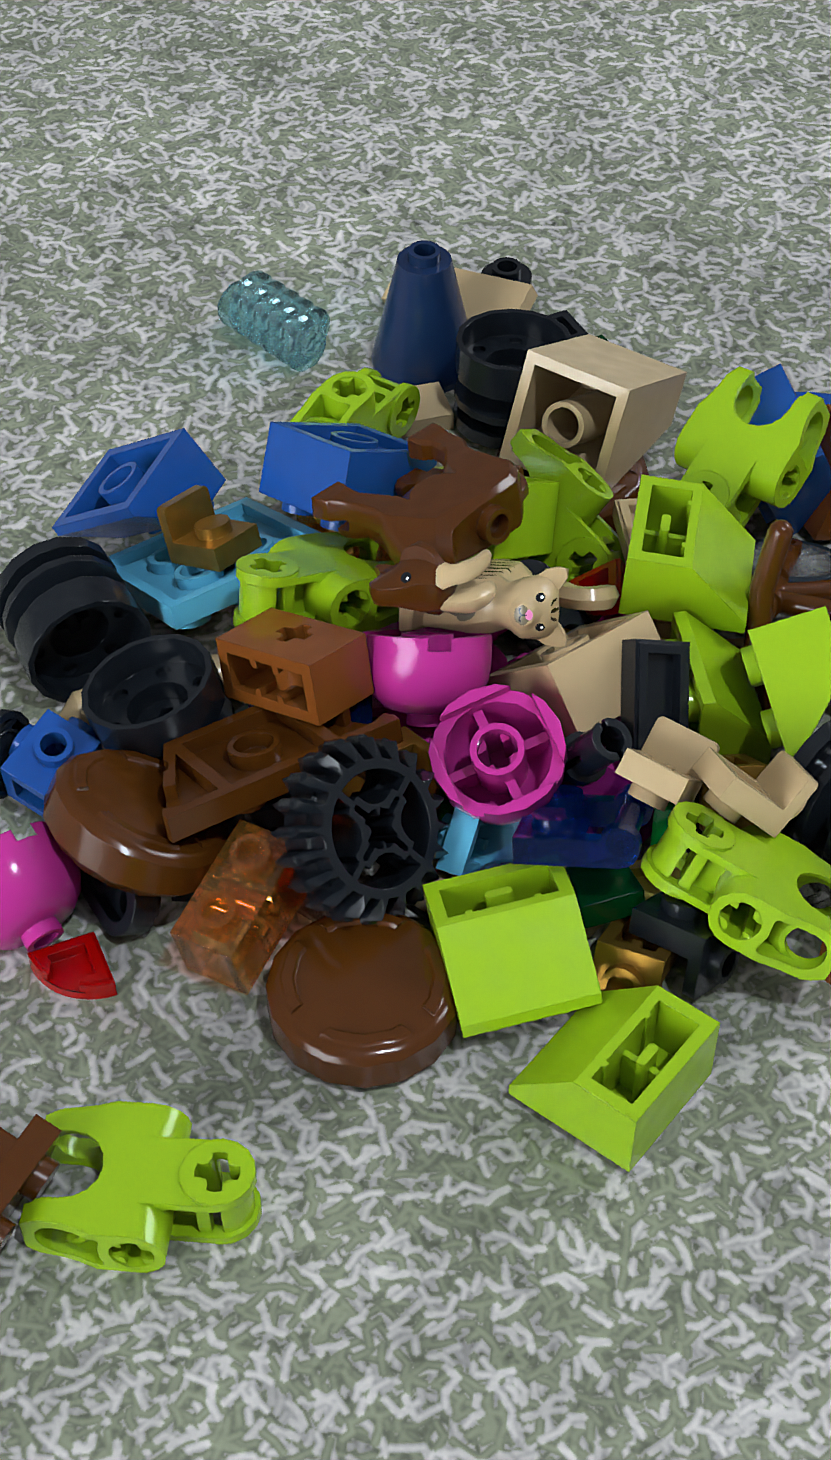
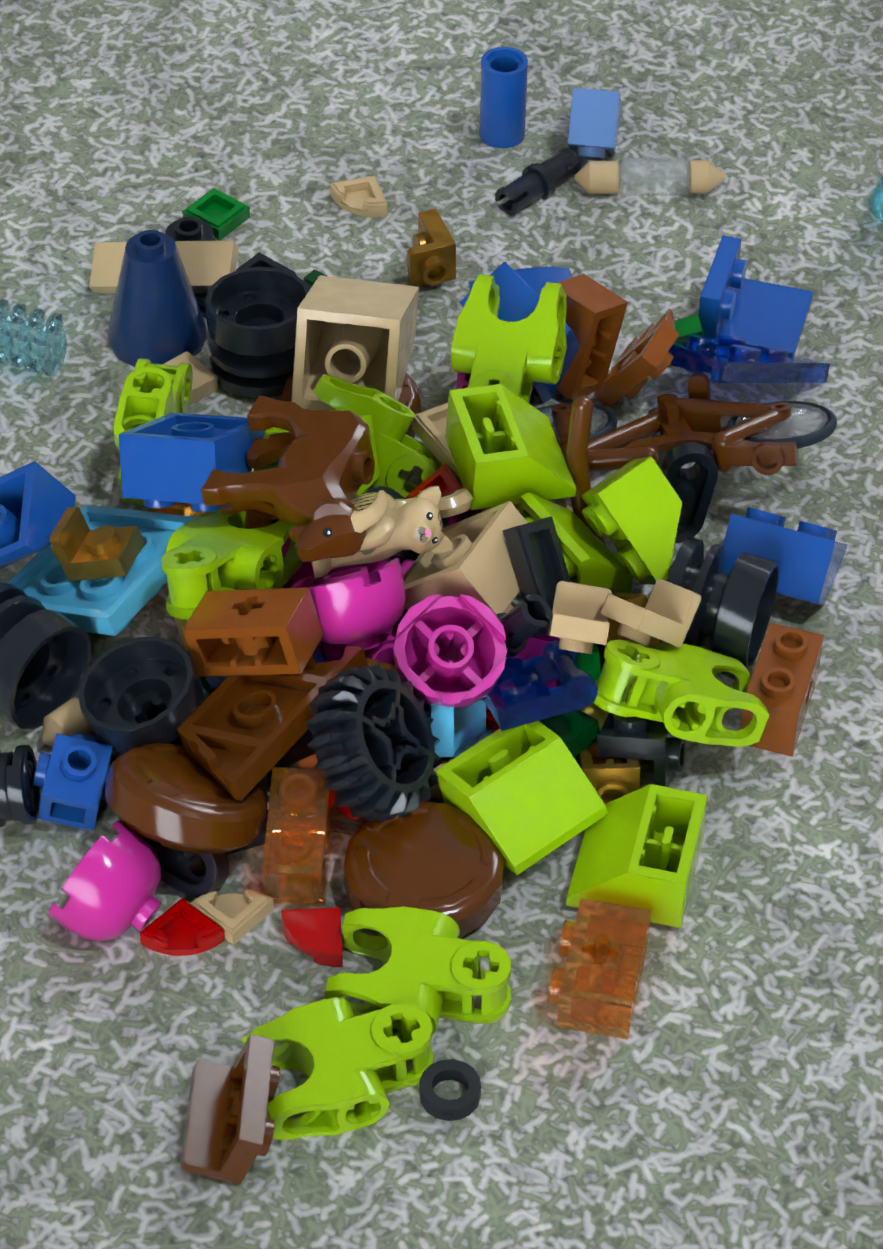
camera: 25 degrees left, 0 degrees up
(141, 966) = (235, 911): none -> tan tile
(213, 1023) = (315, 933): none -> red tile
(254, 1292) = (455, 1108): none -> black piece
(297, 1113) = (422, 967): none -> lime piece
(501, 1187) = (601, 969): none -> clear orange brick
(549, 265) = (219, 211): none -> green tile
(702, 284) = (360, 194): none -> tan tile
(742, 349) = (433, 252): none -> pearl gold bracket

